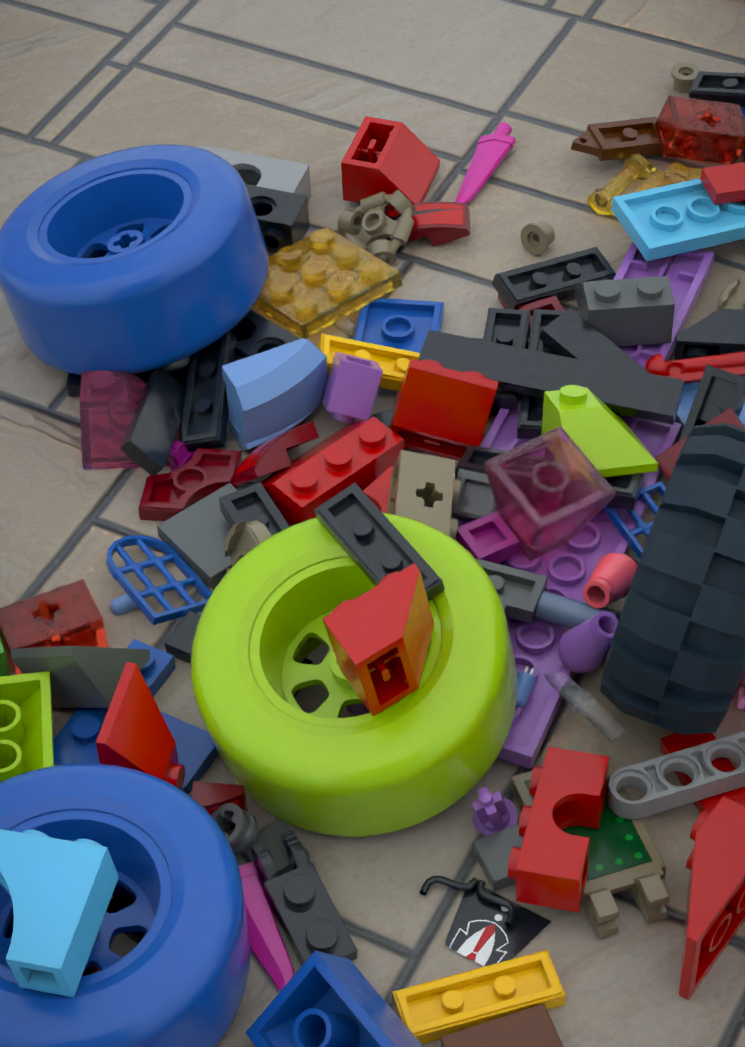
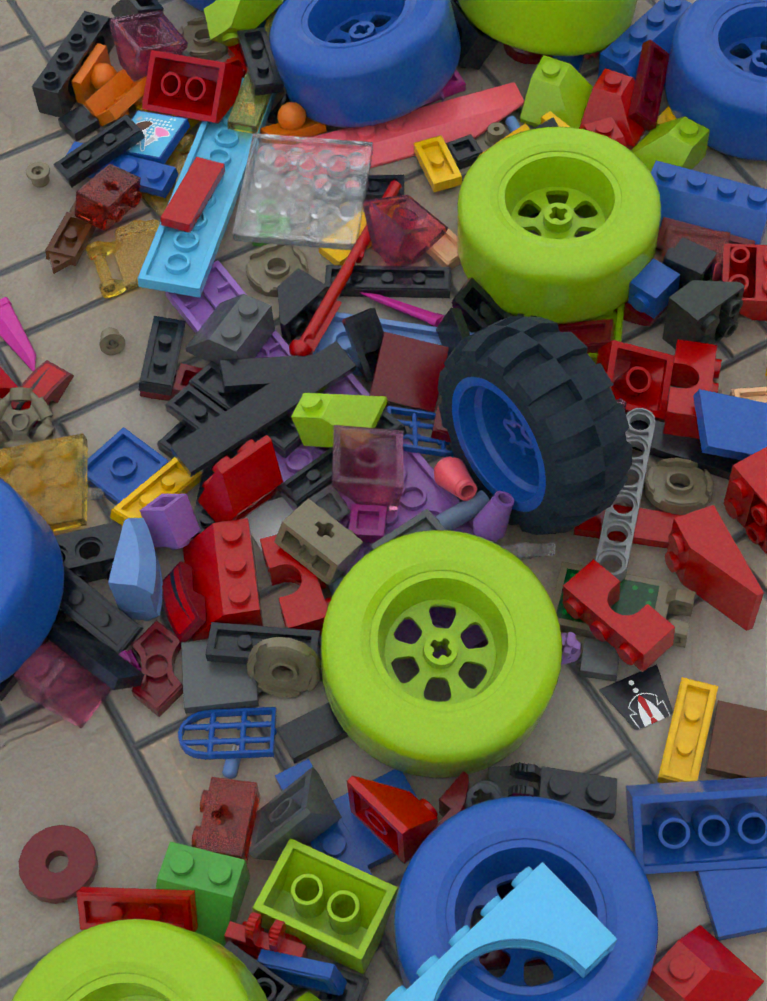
camera: 55 degrees left, 10 degrees up
(372, 538) = (400, 576): black tile -> none
(383, 638) = (493, 614): red slope -> none
(469, 886) = (615, 688): black piece -> none

